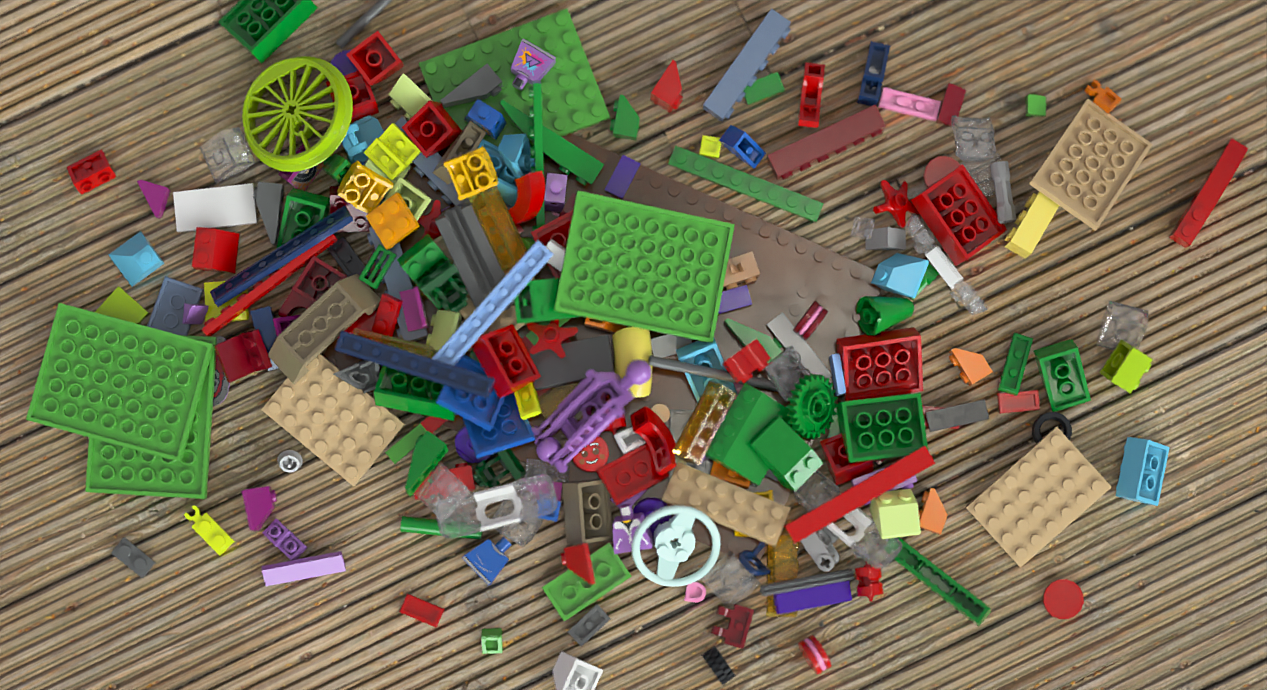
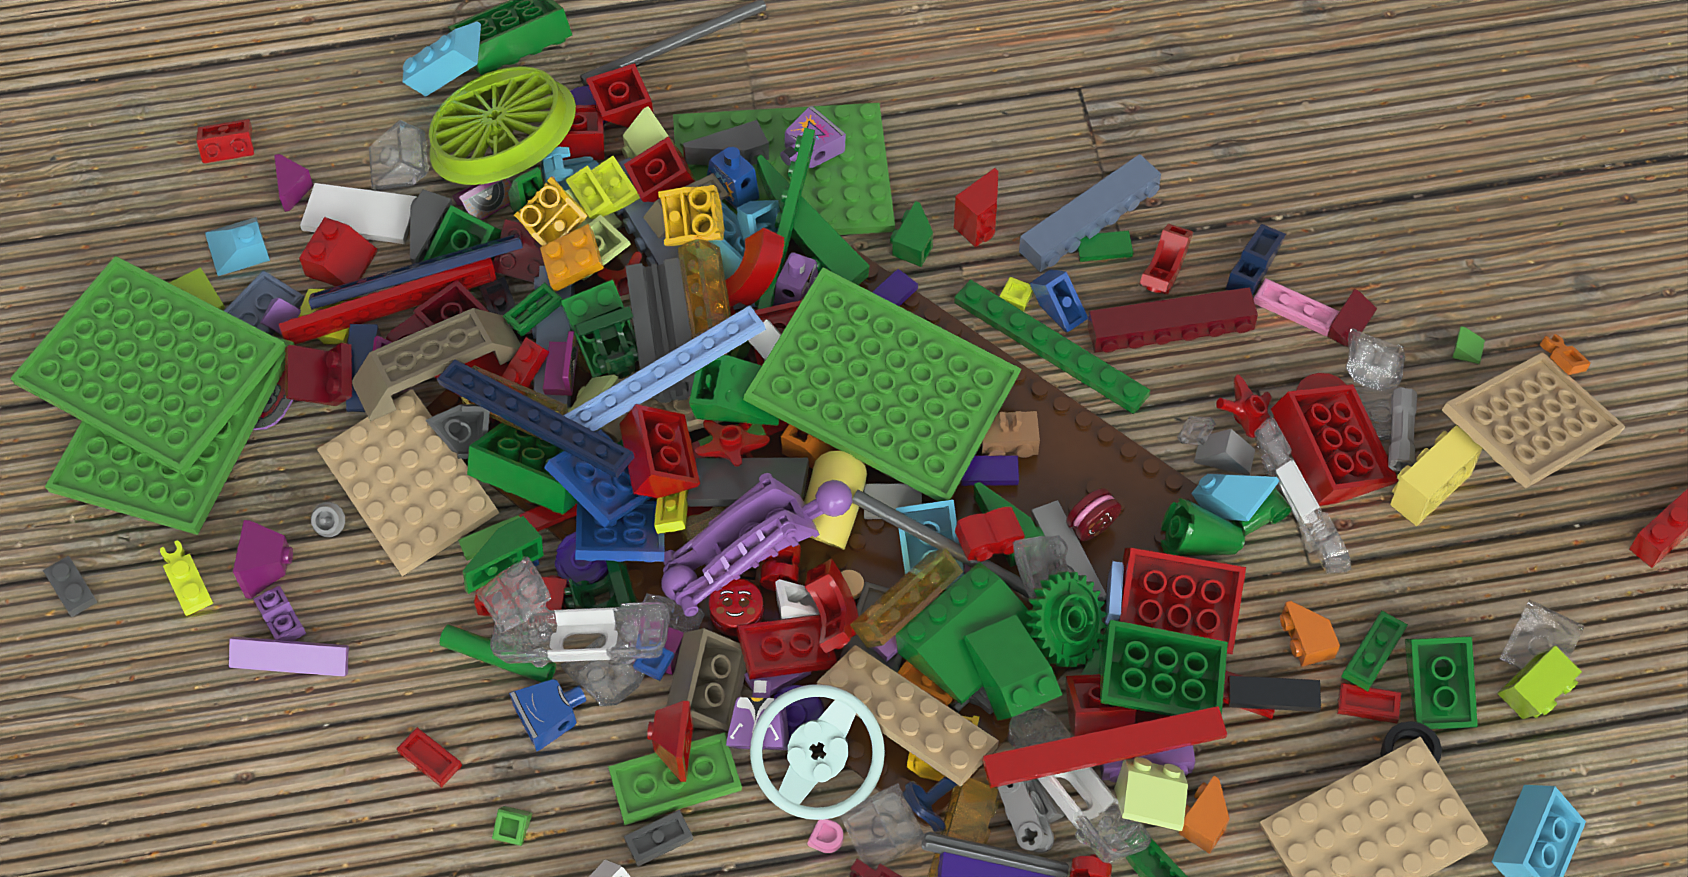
camera: 20 degrees right, 25 degrees down
(232, 62) = (443, 60): none -> medium azure slope

